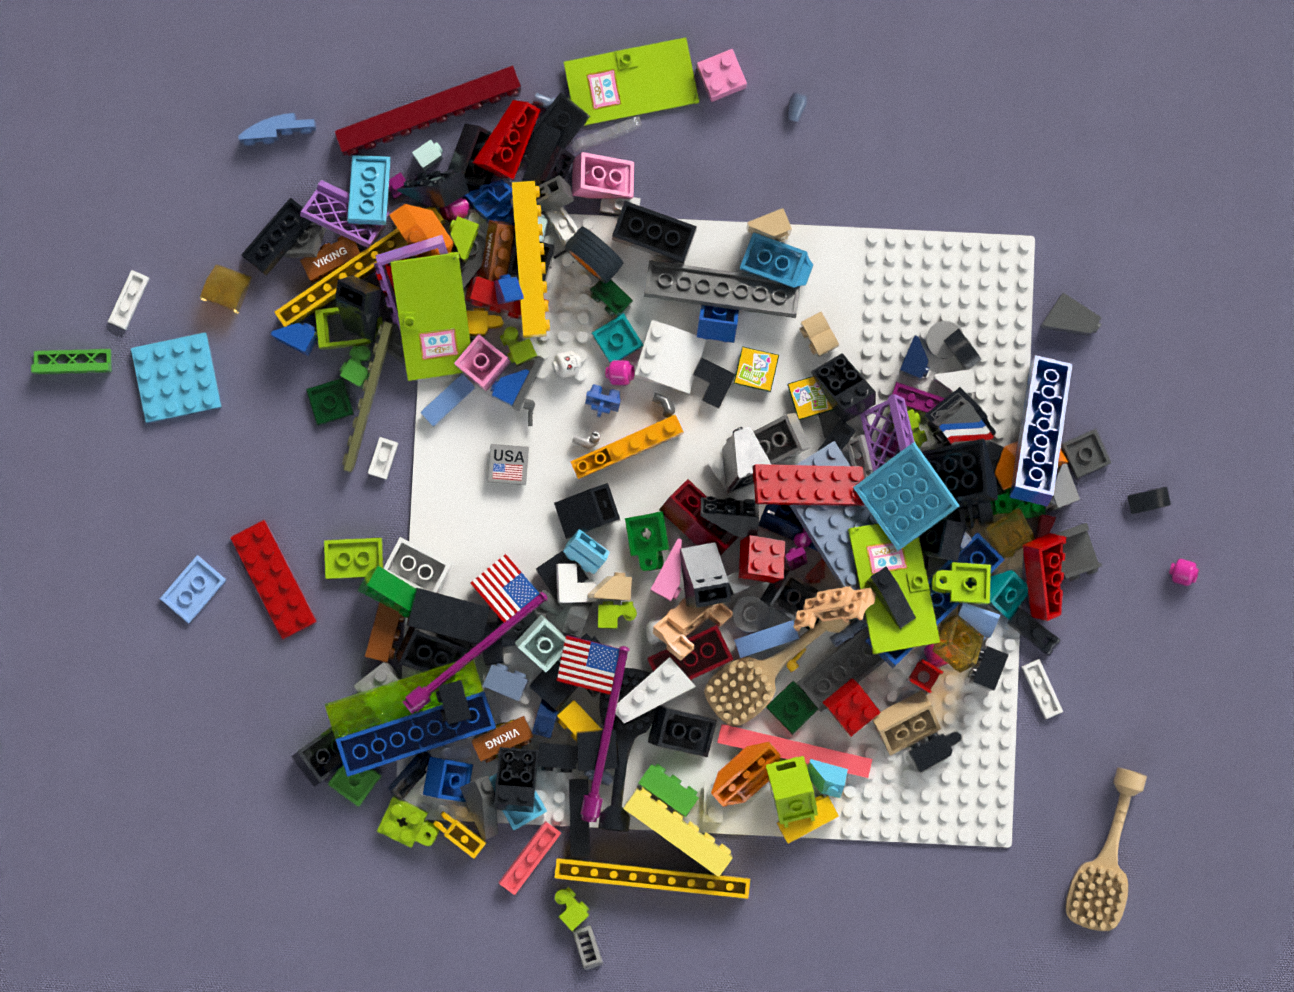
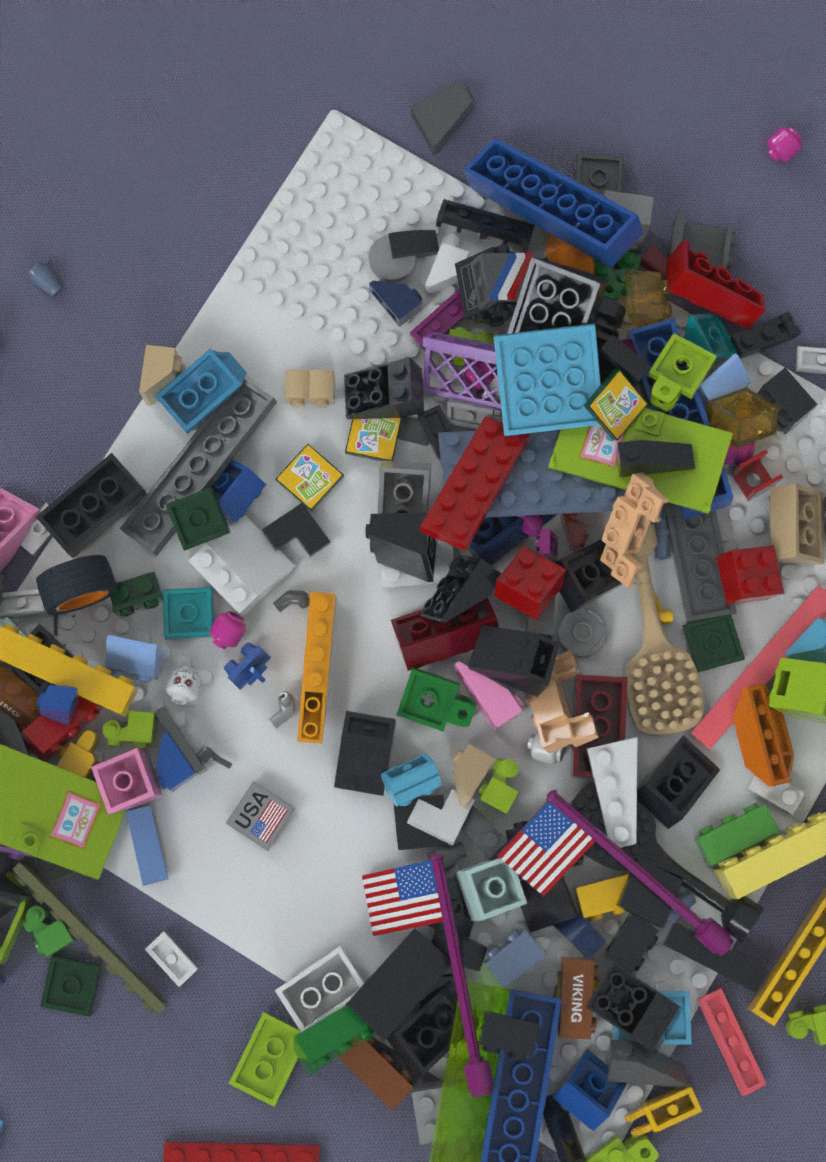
camera: 60 degrees left, 5 degrees down
(566, 321) = (133, 658): none -> light blue slope
(683, 310) = (198, 518): none -> dark green tile
(766, 639) = (621, 628): medium blue slope -> none
(914, 551) = (615, 404): none -> tile
(1005, 391) = (485, 223): none -> black hinge
(1149, 500) = (685, 140): black slope -> none

